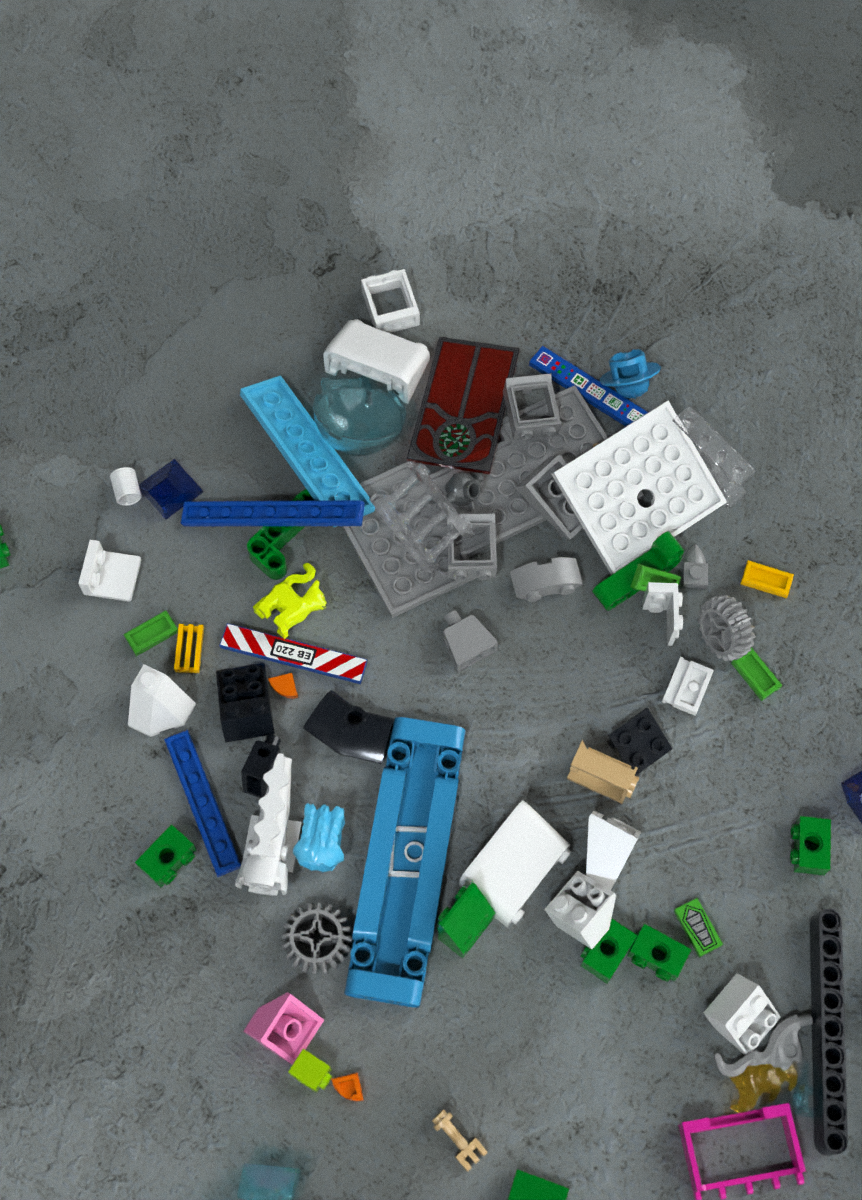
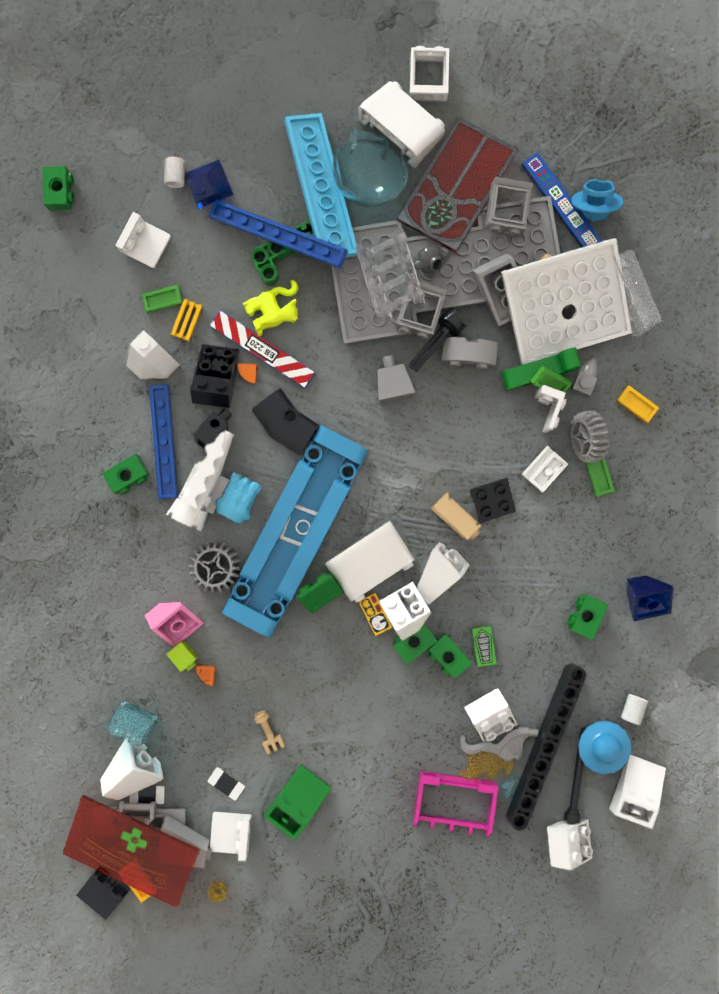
camera: 25 degrees right, 20 degrees up
(512, 555) = (450, 325): none -> black piece
(544, 932) = (375, 614): none -> tile

